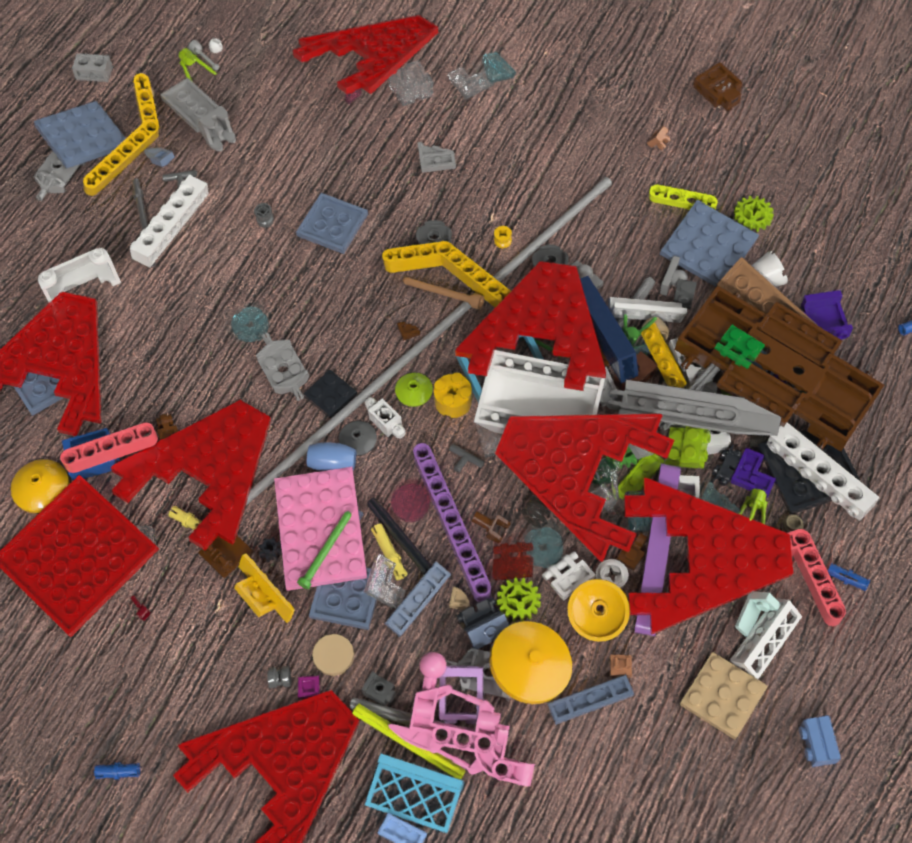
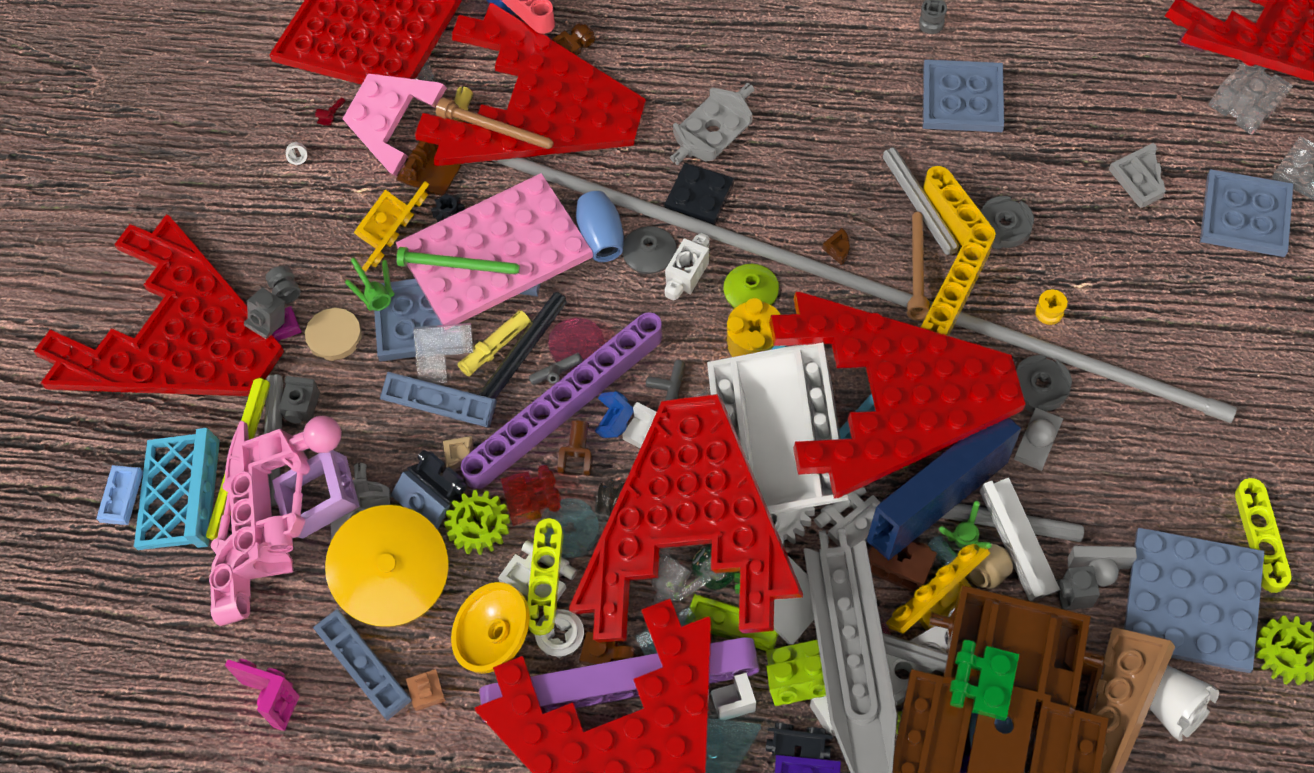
camera: 70 degrees right, 0 degrees up
(117, 770) = (125, 170): blue pin -> none
(164, 569) = (380, 108): none -> bright pink wing
(170, 637) = (291, 154): none -> white hinge
(195, 518) = (449, 109): none -> medium nougat piece
(253, 333) = (760, 78): clear light blue plate -> none
(304, 690) = (265, 313): none -> dark grey brick
(323, 612) = (376, 294): none -> bright green plant
(399, 274) = (920, 201): none -> light grey axle
(428, 518) = (553, 371): none -> dark grey piece
(476, 494) = (617, 416): none -> blue bracket
(484, 120) = (1247, 213): none -> sand blue plate
(491, 481) = (639, 425): none -> white panel
(577, 564) = (545, 576): none -> neon yellow beam
(604, 753) = (277, 695): none -> dark pink bracket

